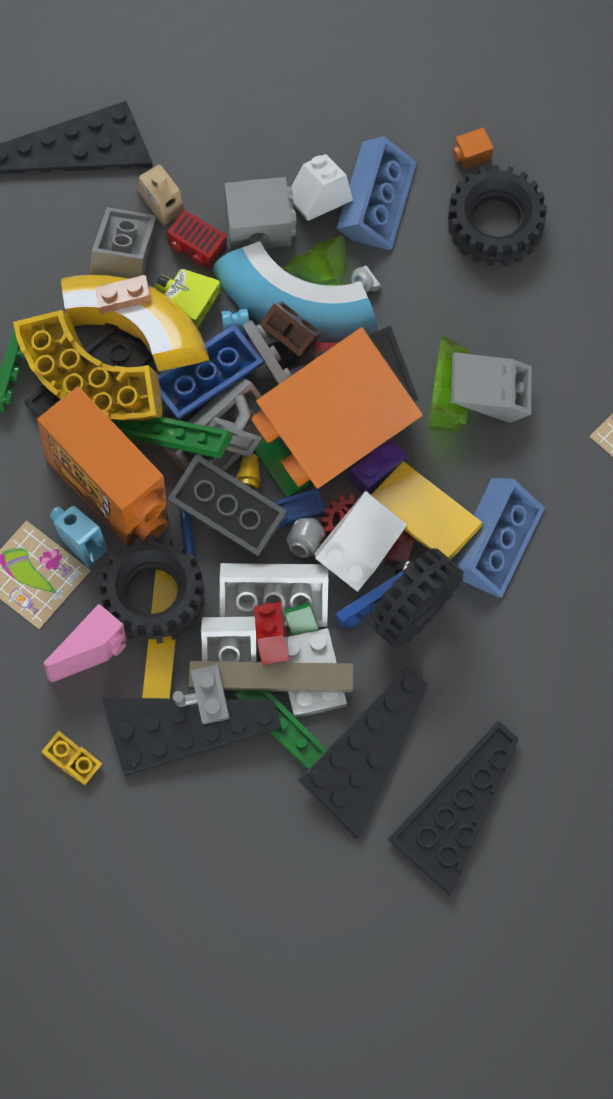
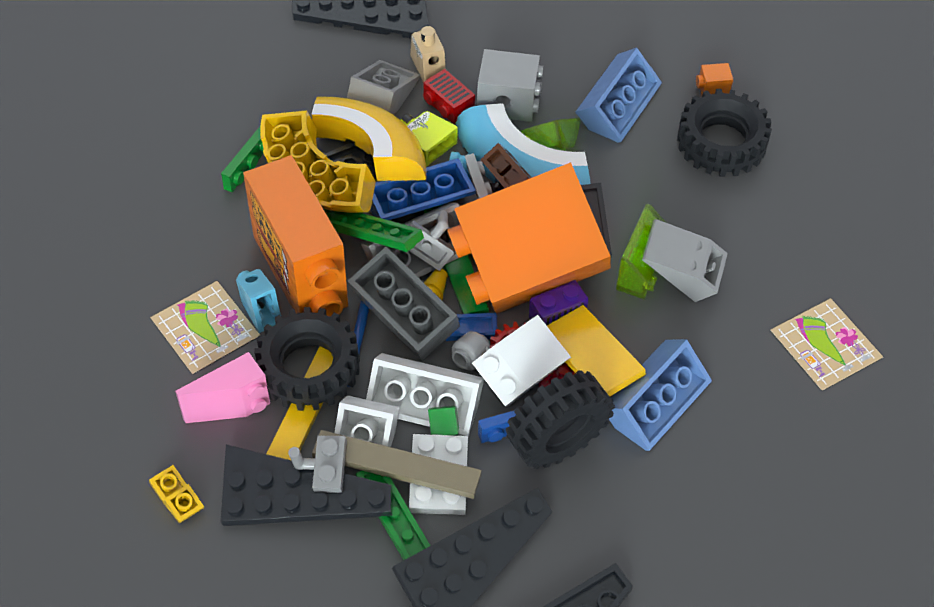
camera: 15 degrees right, 15 degrees down
(123, 294) = (365, 110): plate -> none
(271, 633) = (408, 422): red brick -> none
(320, 187) = (570, 76): white slope -> none
(367, 279) = (592, 157): white plate -> none

